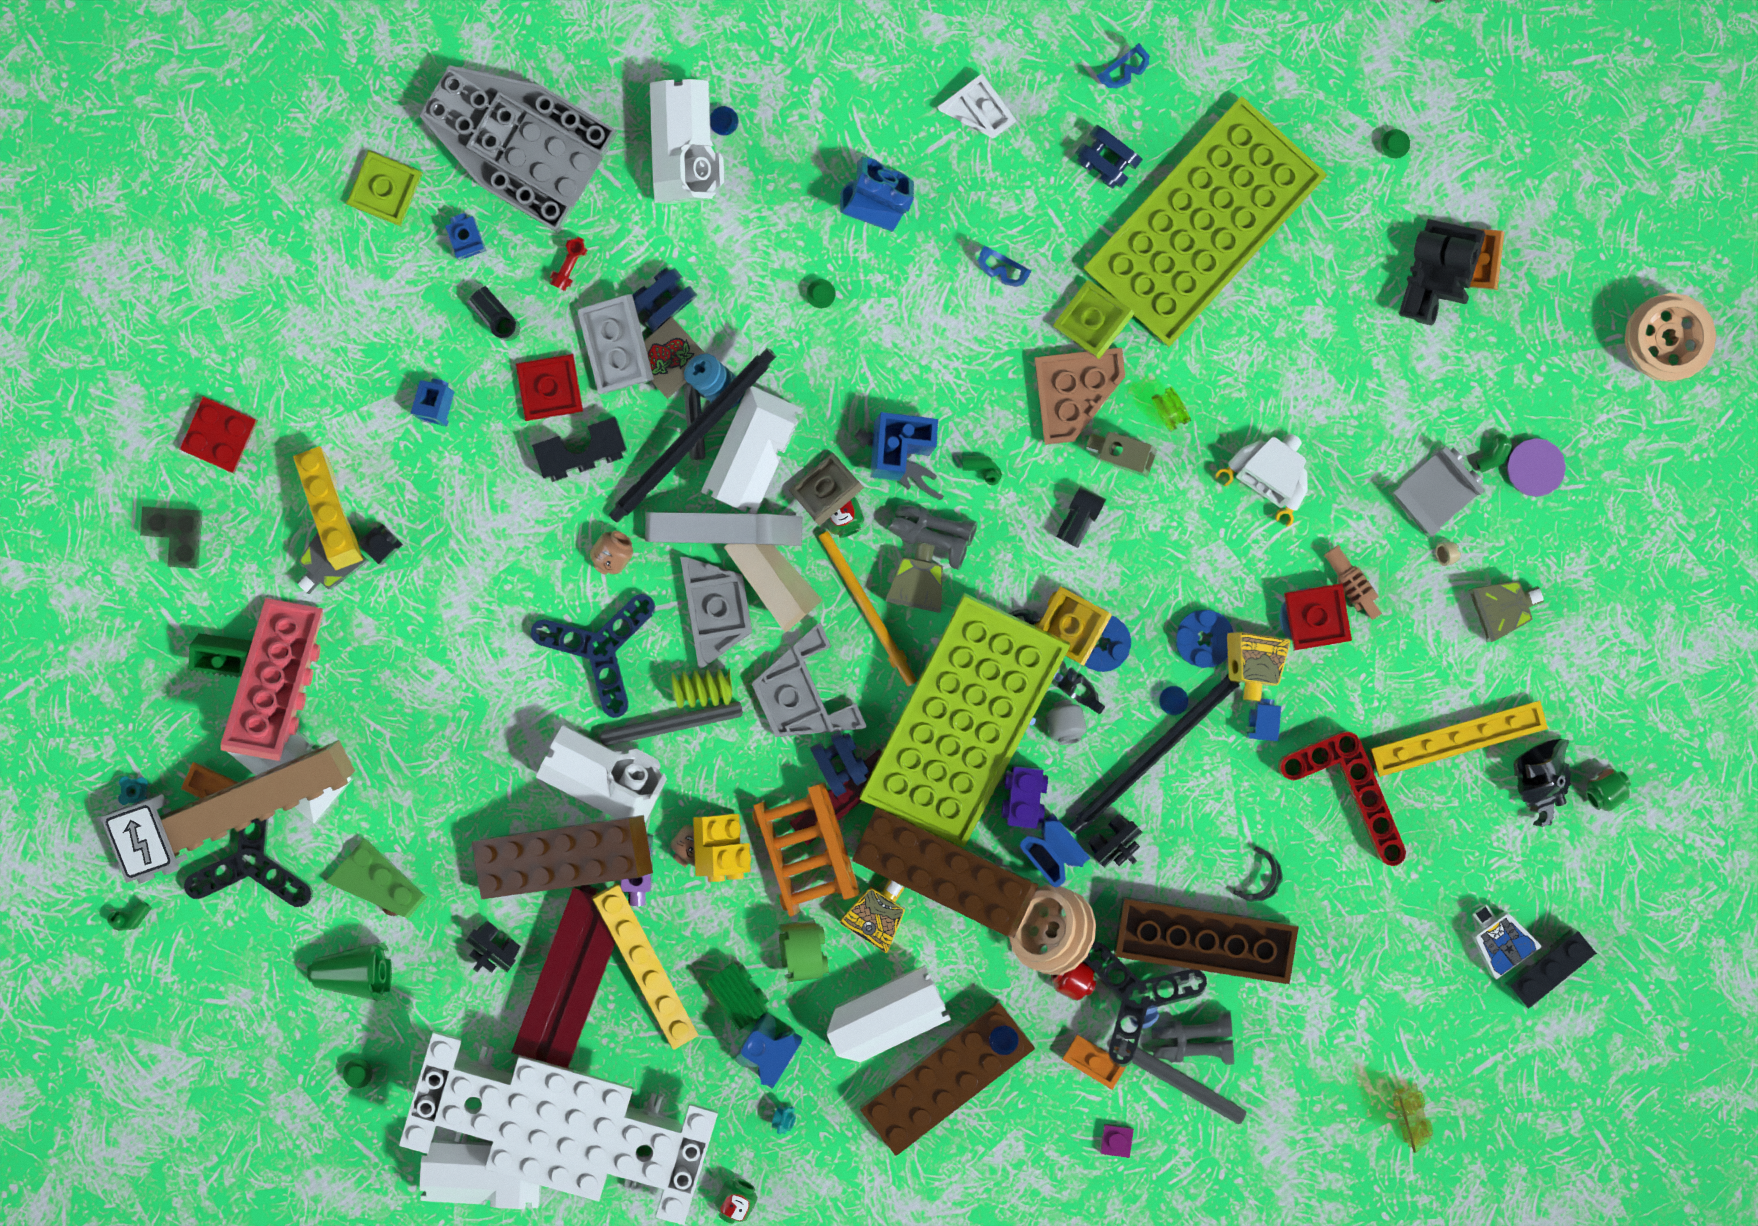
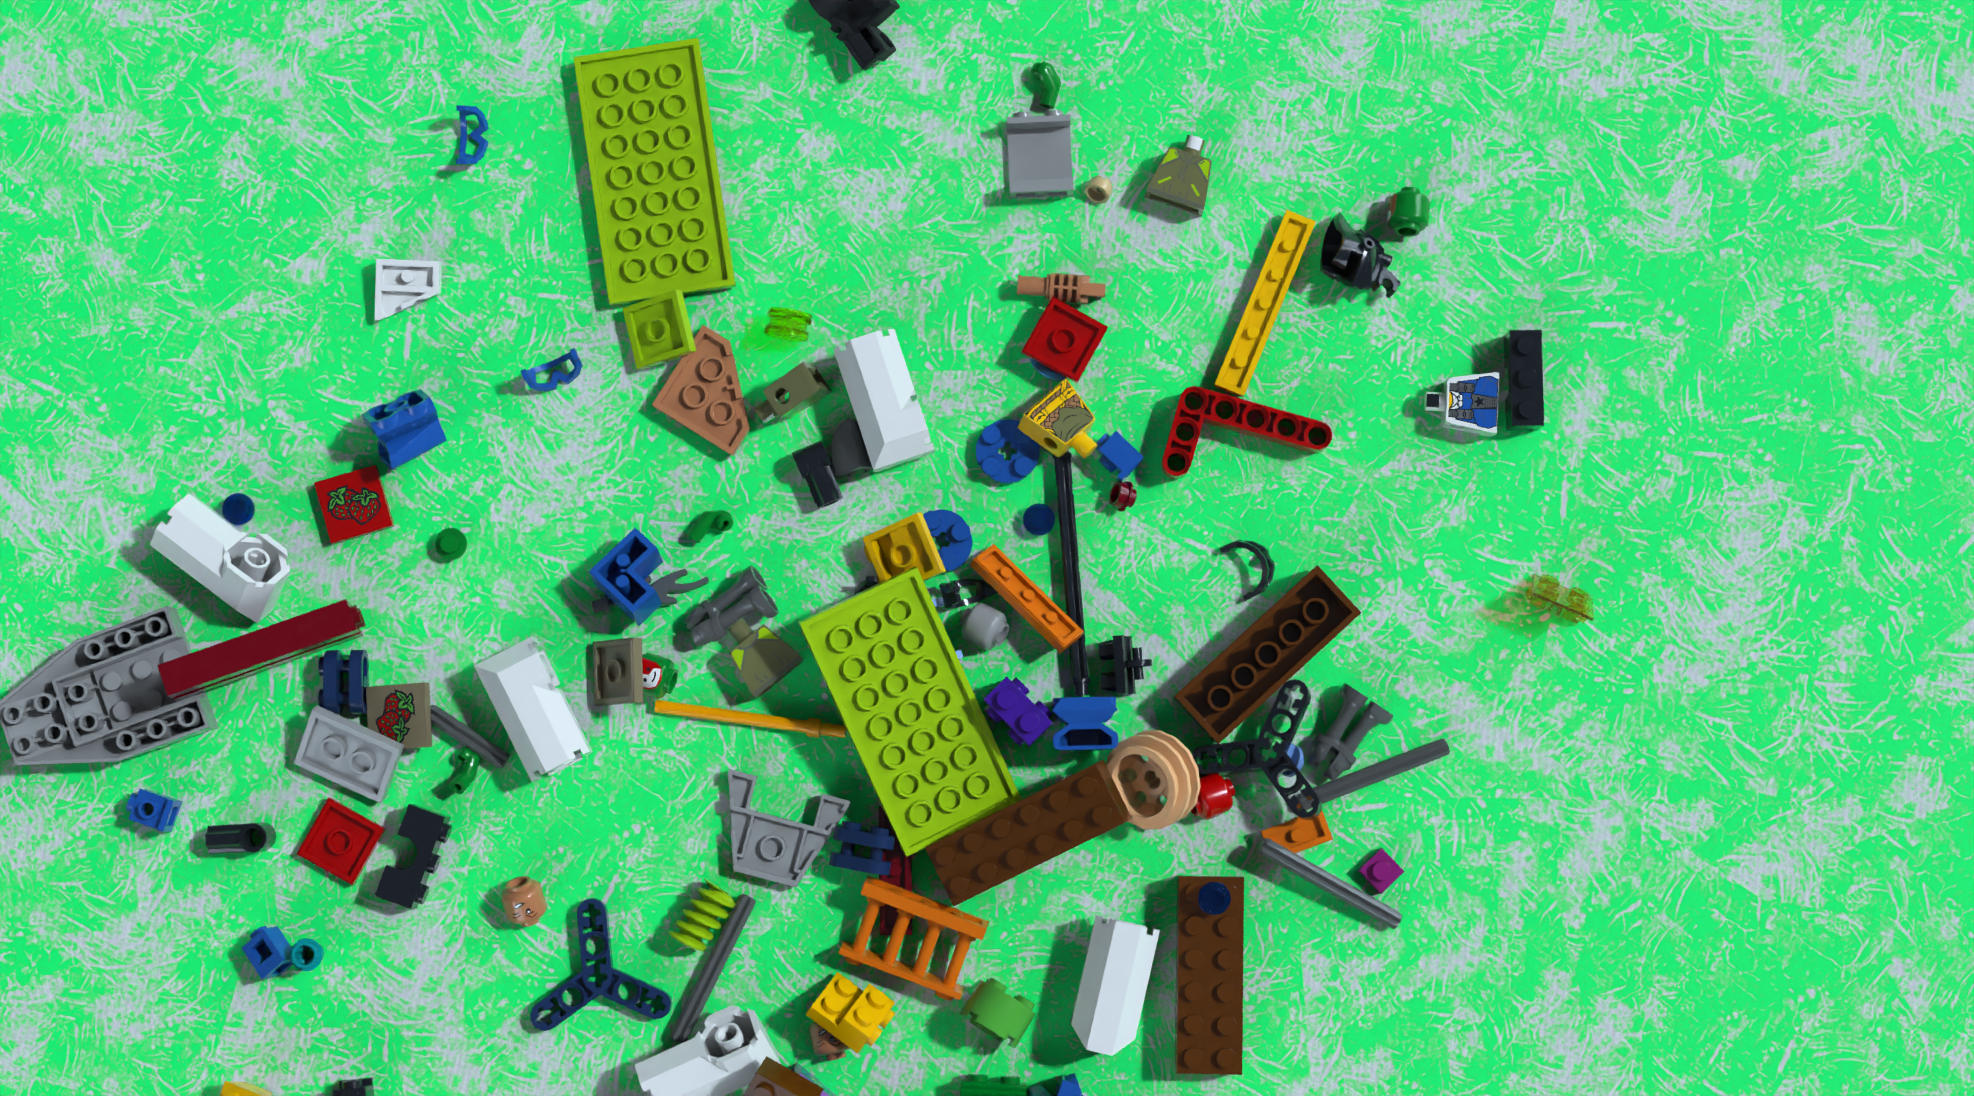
camera: 45 degrees left, 5 degrees down
(384, 188) = (57, 846): lime tile -> none
(445, 431) = (300, 957): none -> teal cone
(576, 249) = (243, 723): red bar -> none
(640, 225) = (261, 650): none -> dark red brick
(665, 440) = (468, 773): none -> green arm
(692, 434) = (478, 749): black piece -> none
(708, 376) = (448, 694): dark azure piece -> none
(716, 608) = (645, 850): light grey wing -> none
(724, 528) = (579, 785): light grey beam -> none
(775, 582) = (655, 778): tan slope -> none
(793, 201) = (354, 504): none -> red tile
(876, 915) = (1019, 922): torso -> none
(1079, 1112) = (1330, 883): none -> dark grey axle
(1110, 737) = (1026, 598): none -> orange tile
(1111, 174) = (522, 223): dark blue brick -> none
(1117, 527) = (849, 449): none -> dark grey brick
(1169, 522) = (884, 400): none -> white brick
(1238, 746) = (1122, 495): none -> dark red plate
(1273, 471) = (910, 280): white torso -> none
(1536, 467) = (1085, 59): medium lavender tile -> none

